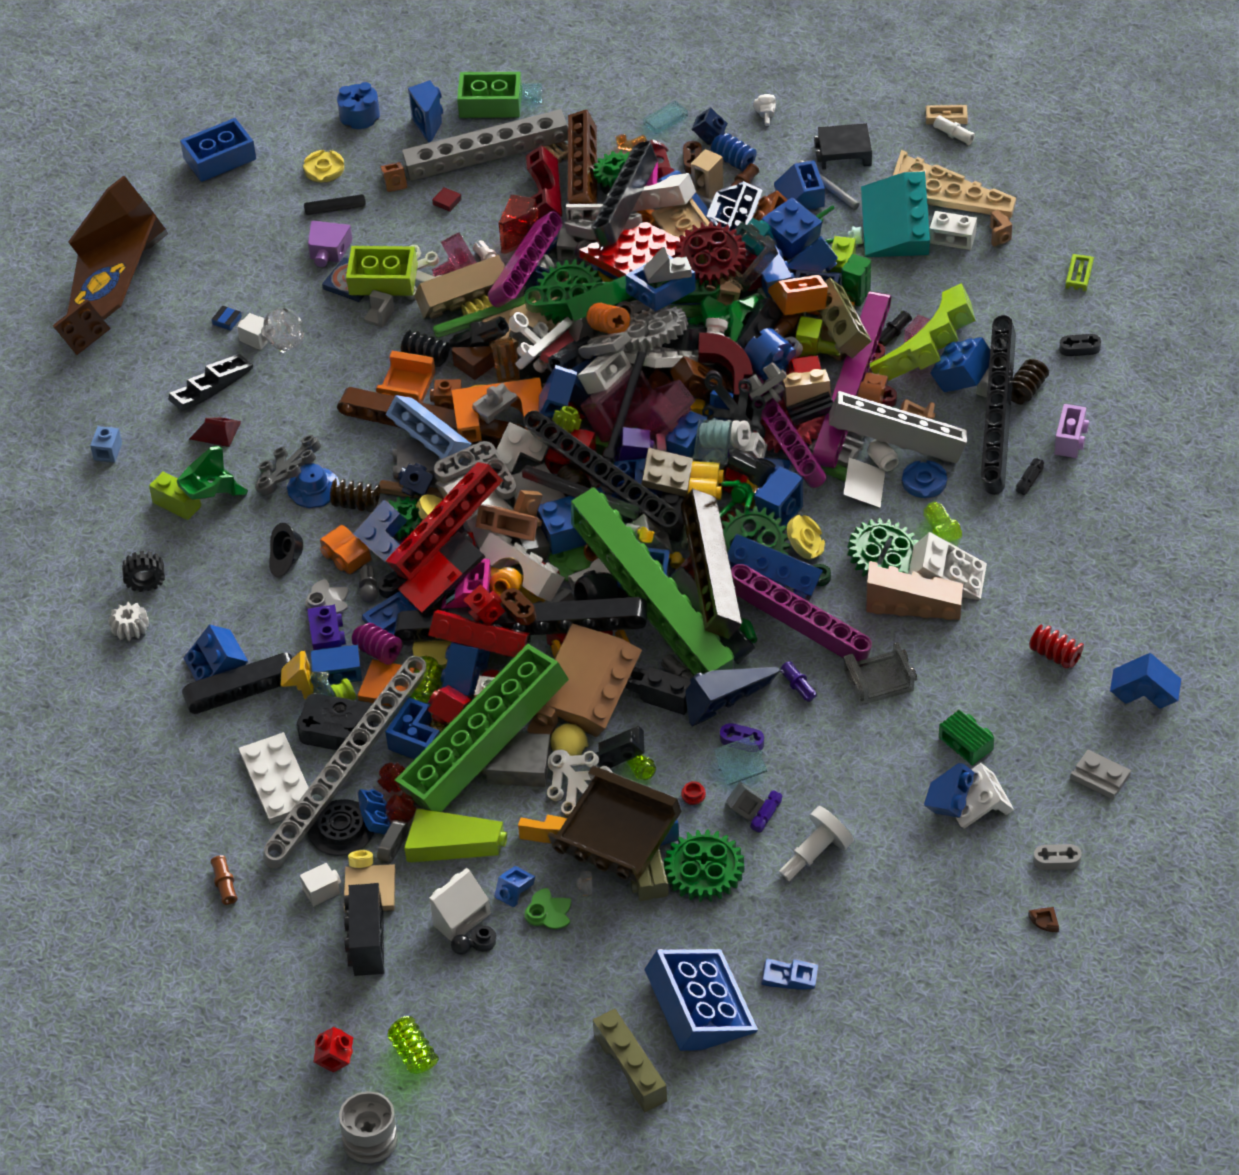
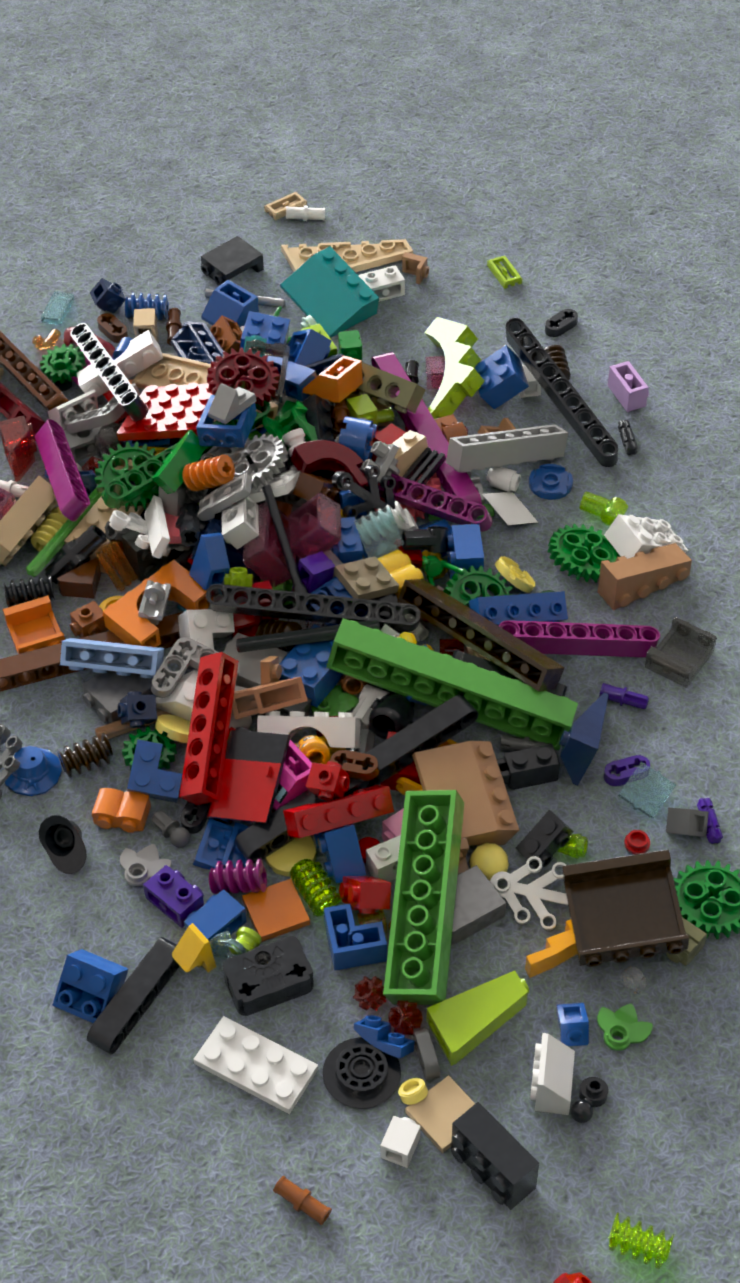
camera: 40 degrees left, 0 degrees up
(340, 770) = (321, 1017): light grey beam -> none
(765, 106) = (135, 262): white piece -> none

